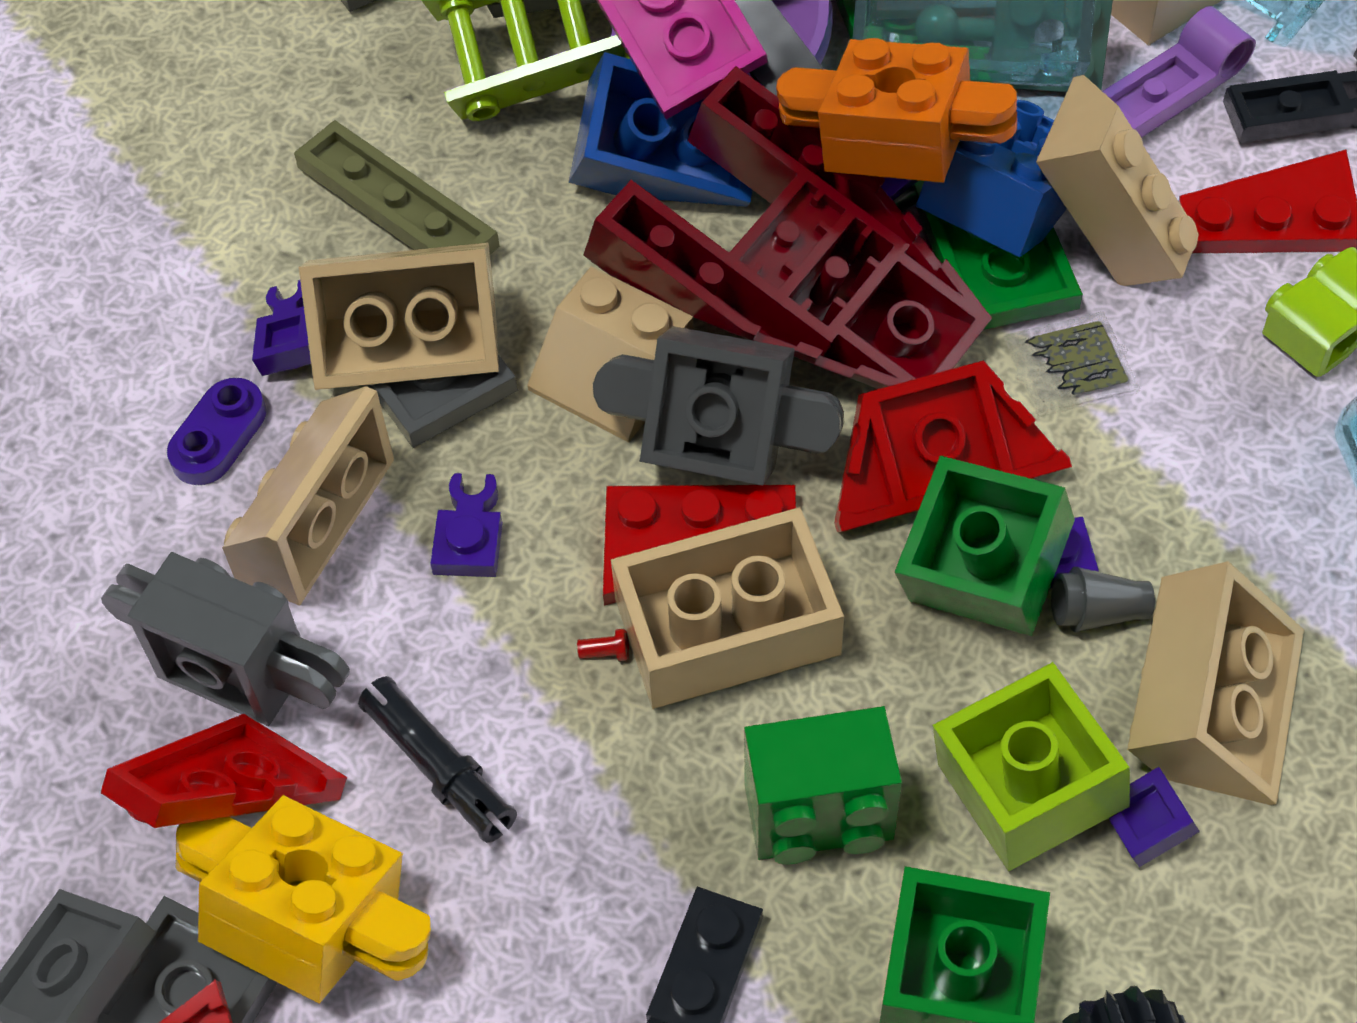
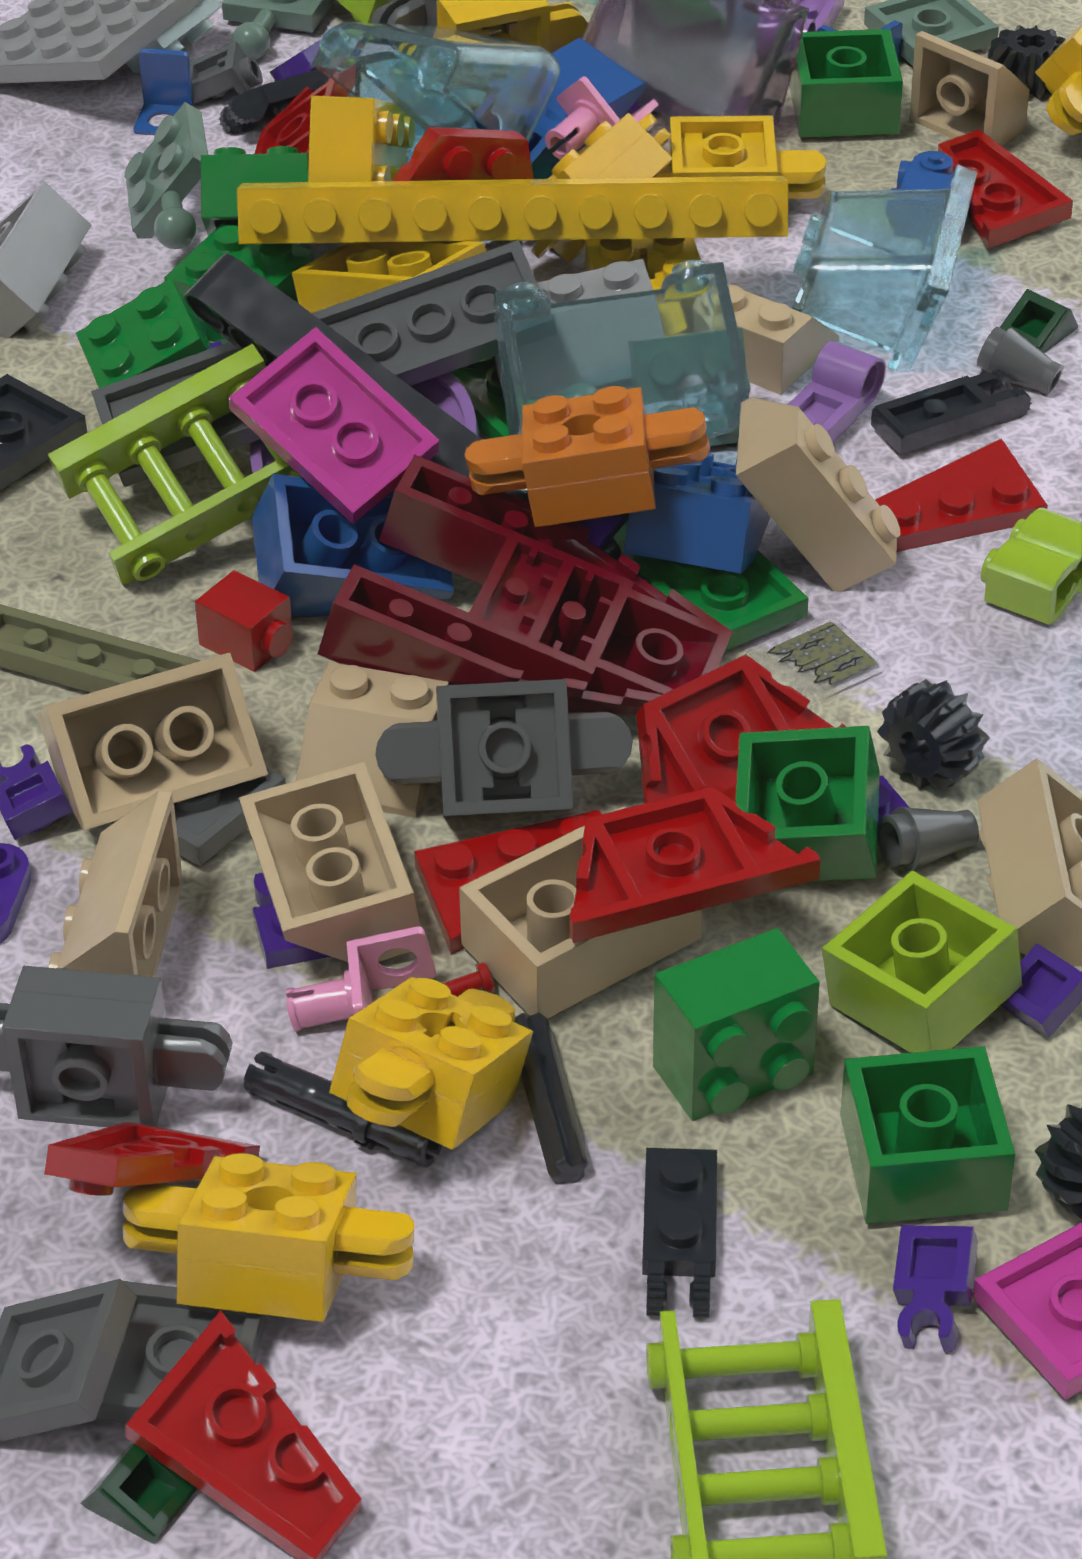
camera: 20 degrees left, 15 degrees down
(493, 633) = (347, 996): none -> bright pink bracket
(514, 494) = (330, 861): none -> tan slope
(518, 744) = (431, 1060): none -> yellow brick
(545, 191) = (244, 620): none -> red brick
(629, 799) = (551, 1103): none -> black axle
(819, 593) = (677, 861): none -> red wing
(1144, 490) = (933, 734): none -> black gear

